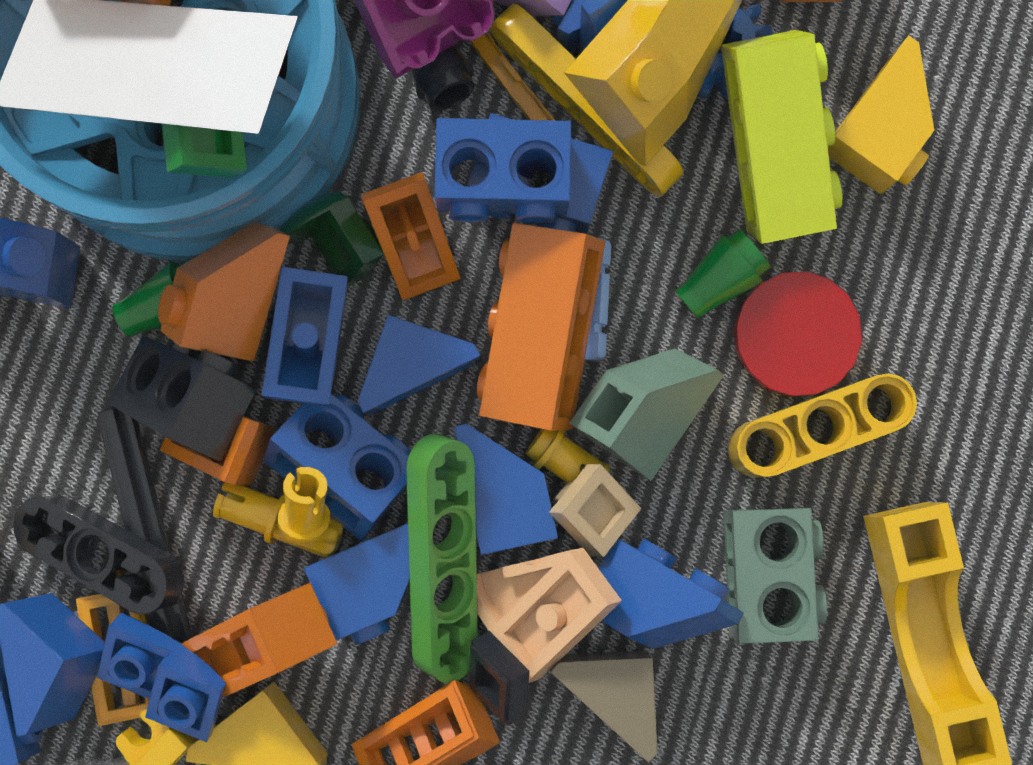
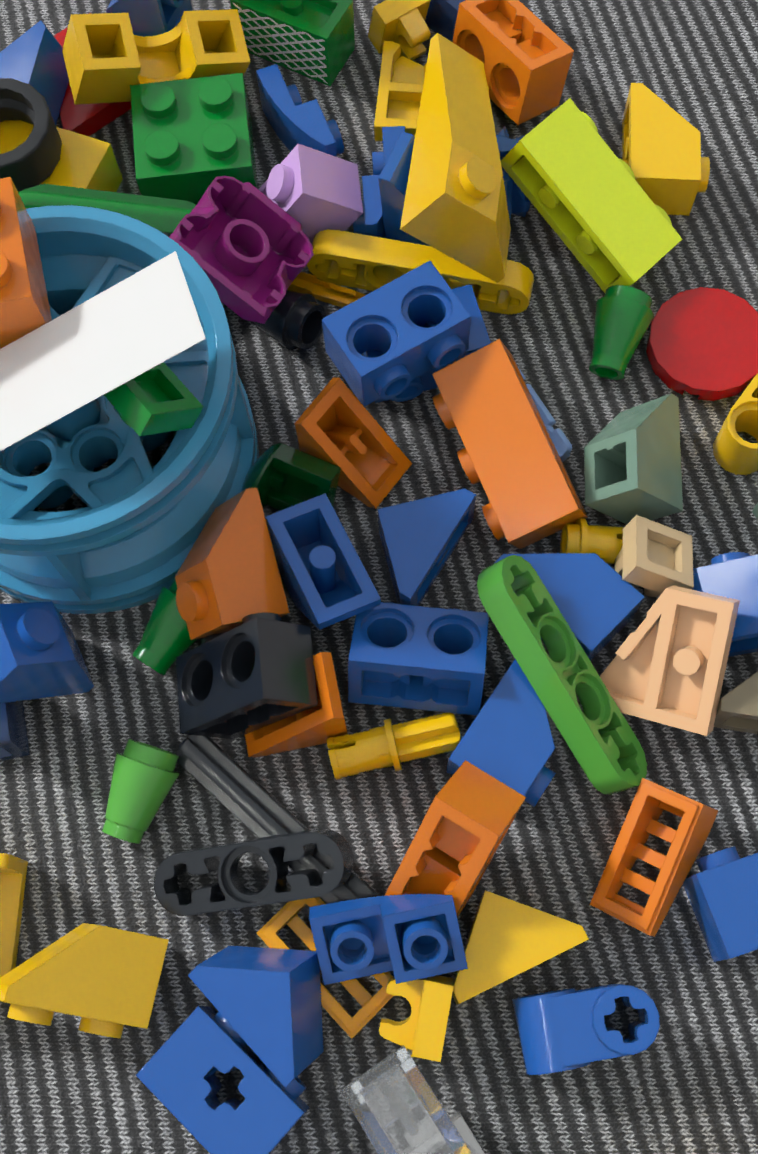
camera: 25 degrees left, 15 degrees down
(52, 422) = (138, 789): none -> bright green cone
(304, 513) = (418, 712): yellow pin -> none
(498, 678) = (679, 750): black tile -> none

